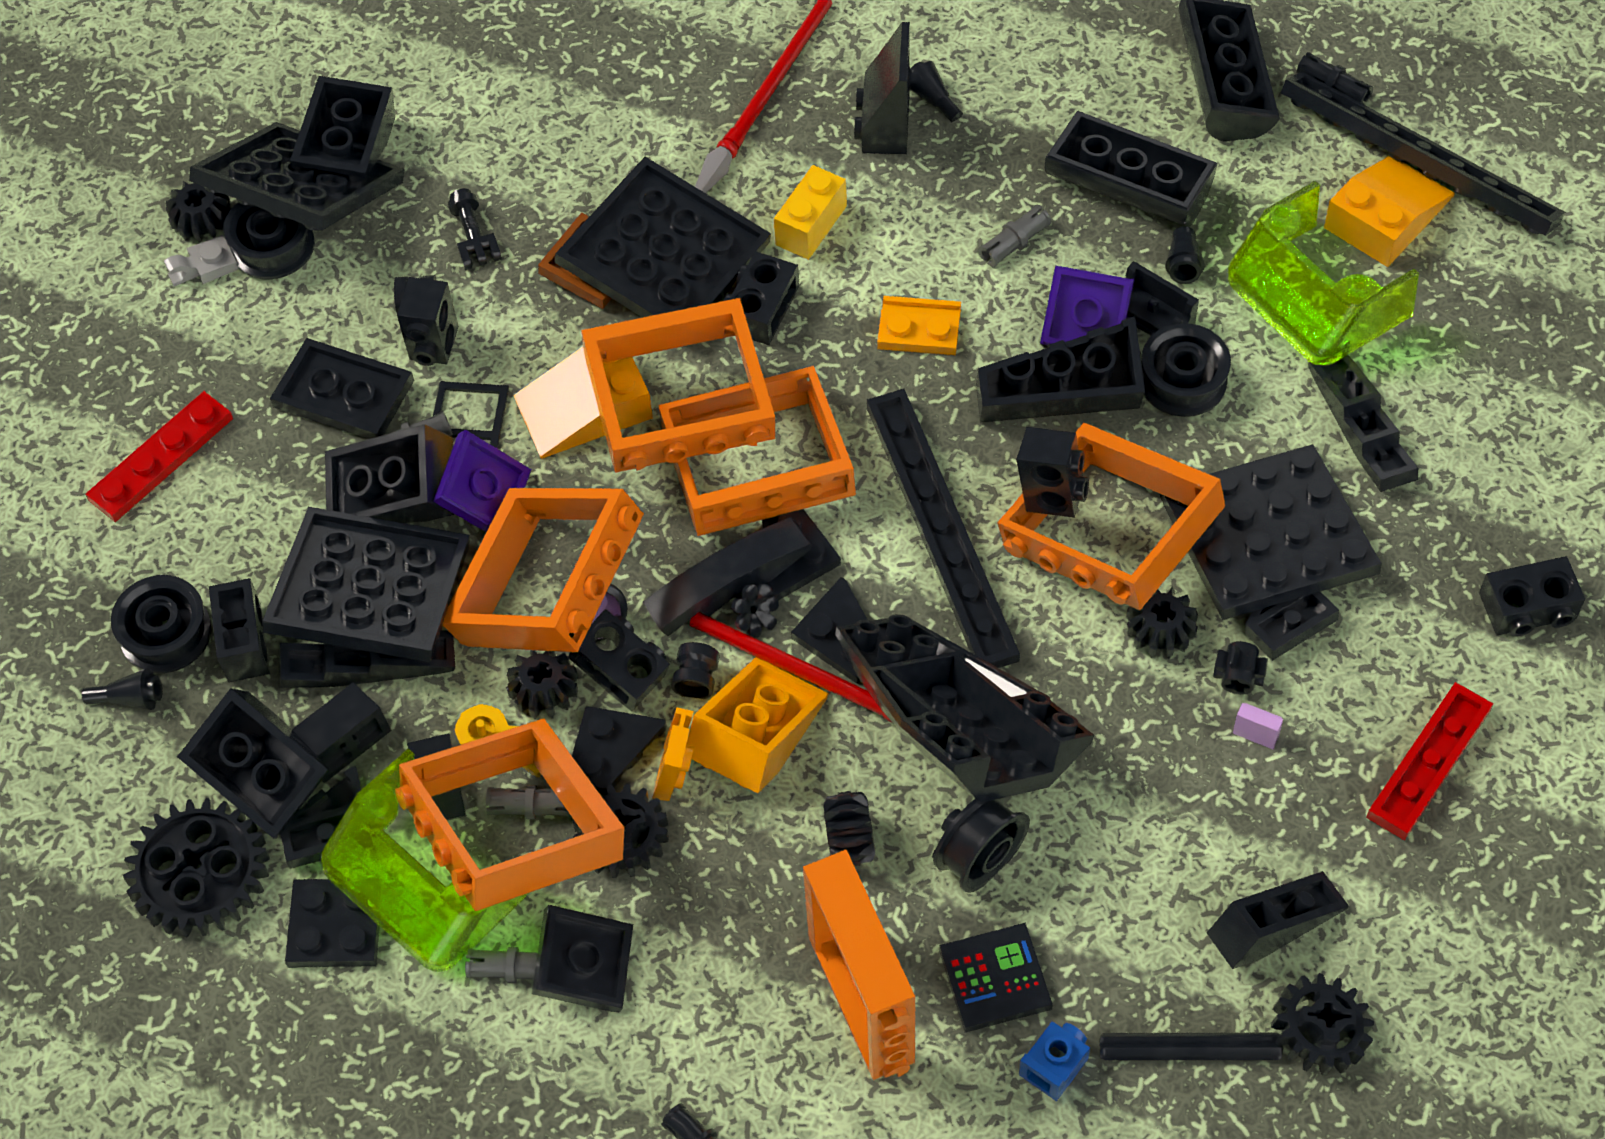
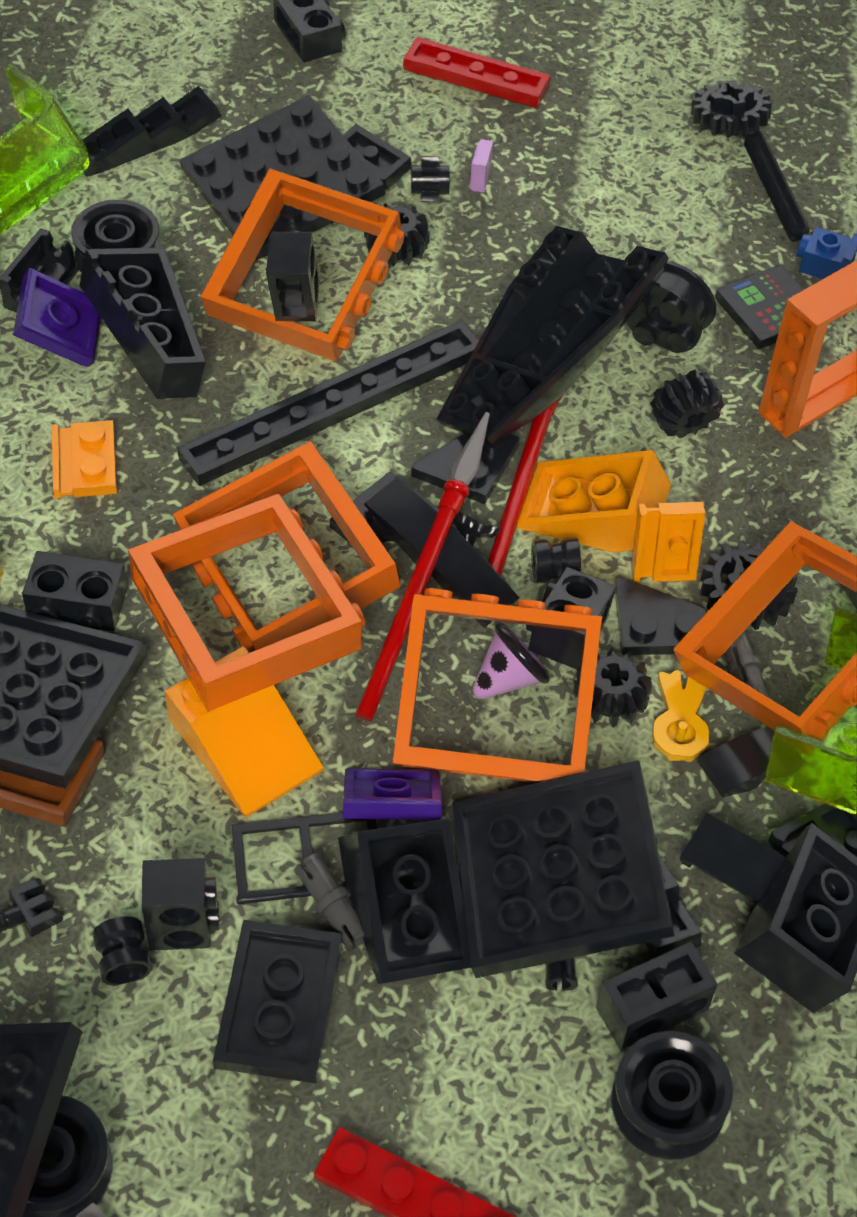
camera: 110 degrees left, 5 degrees down
(135, 690) = (761, 1107): black cone -> none
(754, 571) = (449, 506): none -> red piece
(1274, 918) = (657, 142): black slope -> none

